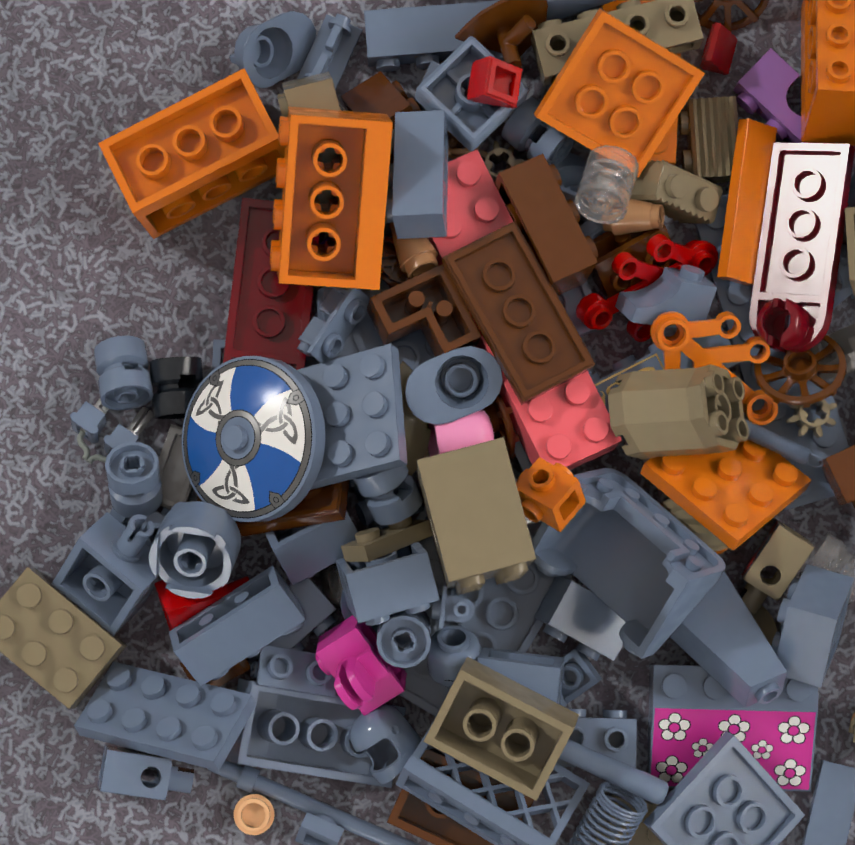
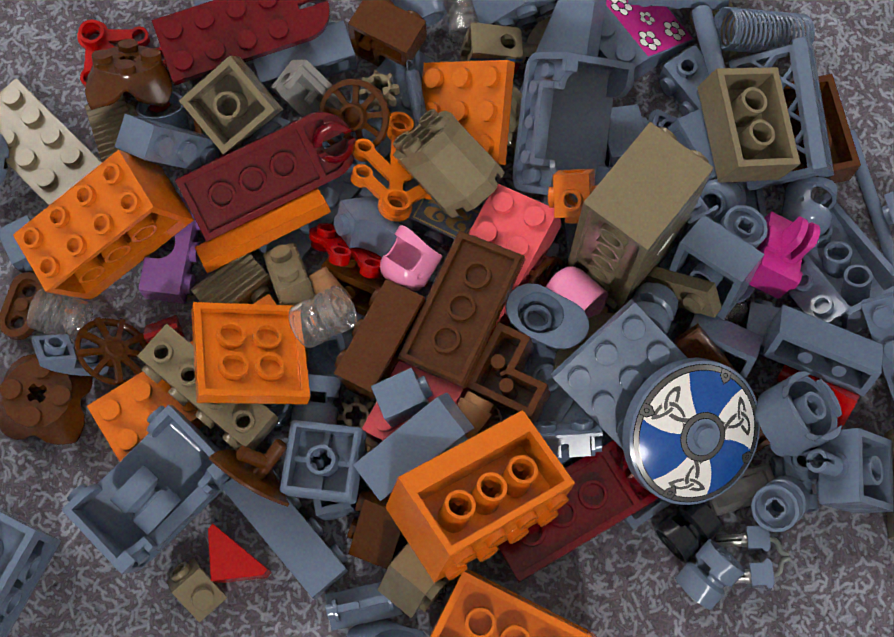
camera: 125 degrees left, 10 degrees down
(473, 196) = (402, 396): none -> sand blue brick
(494, 82) = (305, 445): red slope -> none
(602, 301) = (409, 260): none -> bright pink helmet

